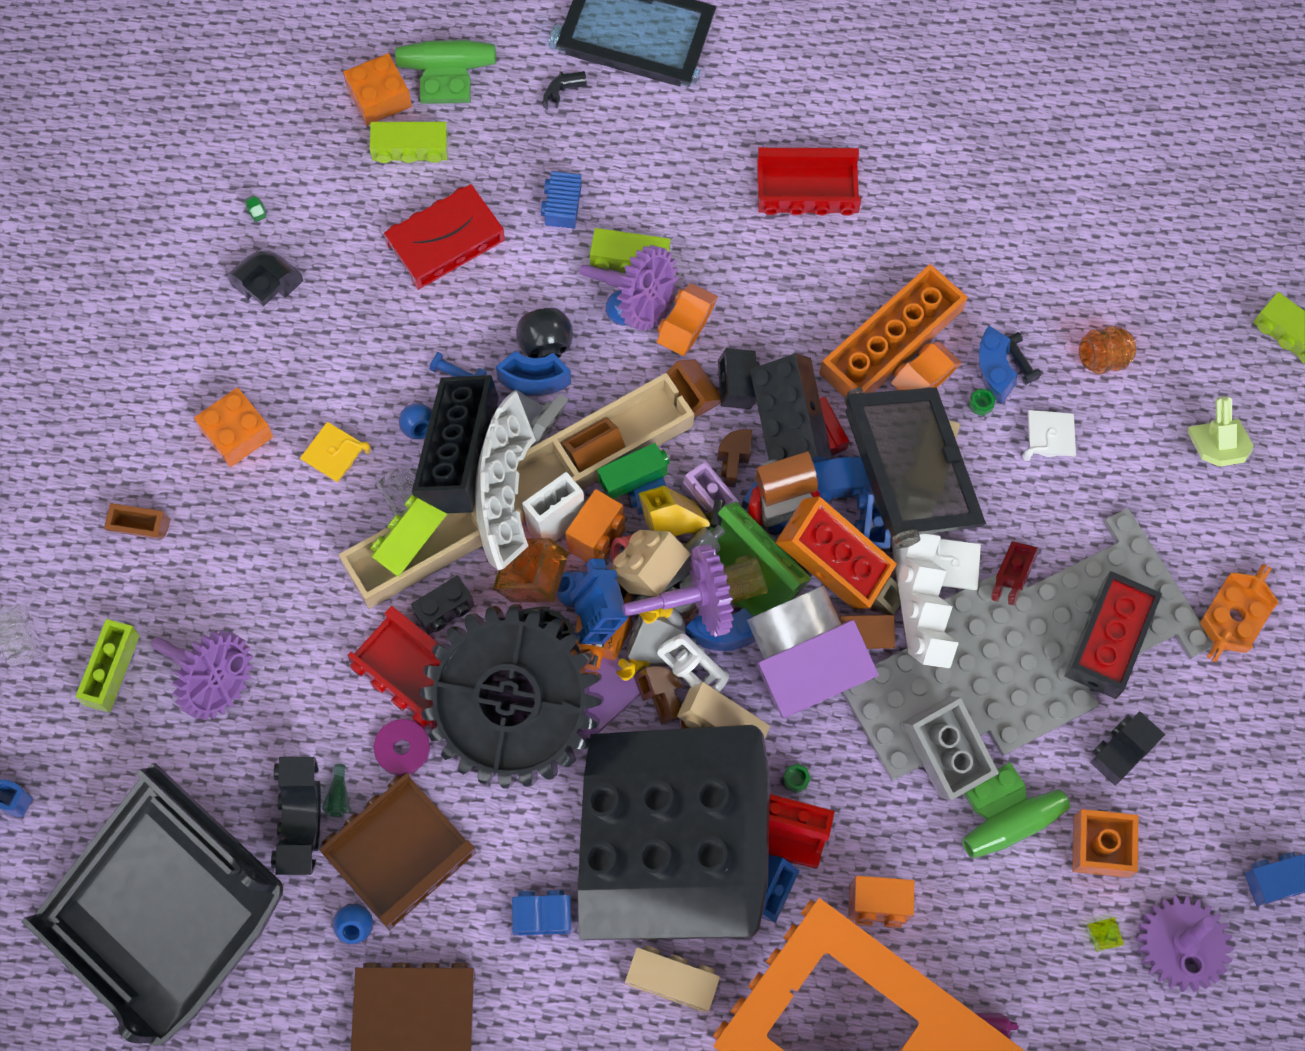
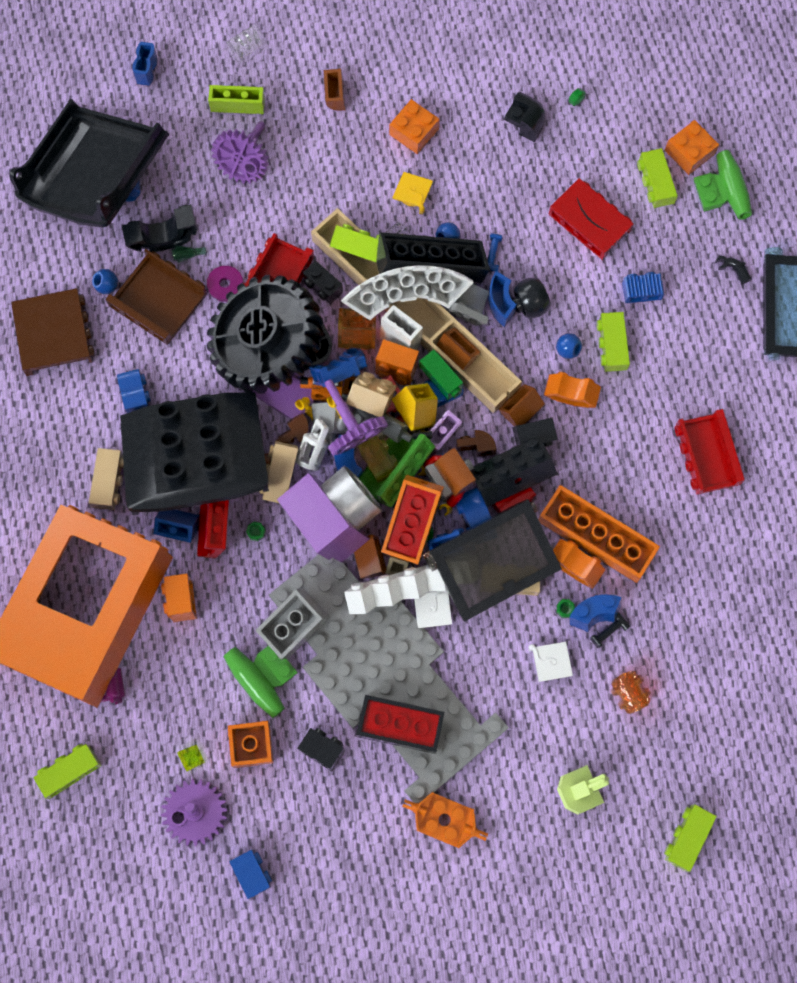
camera: 80 degrees right, 5 degrees up
(645, 286) = (583, 352): medium lavender gear -> none
(1014, 571) = (436, 650): dark red hinge -> none

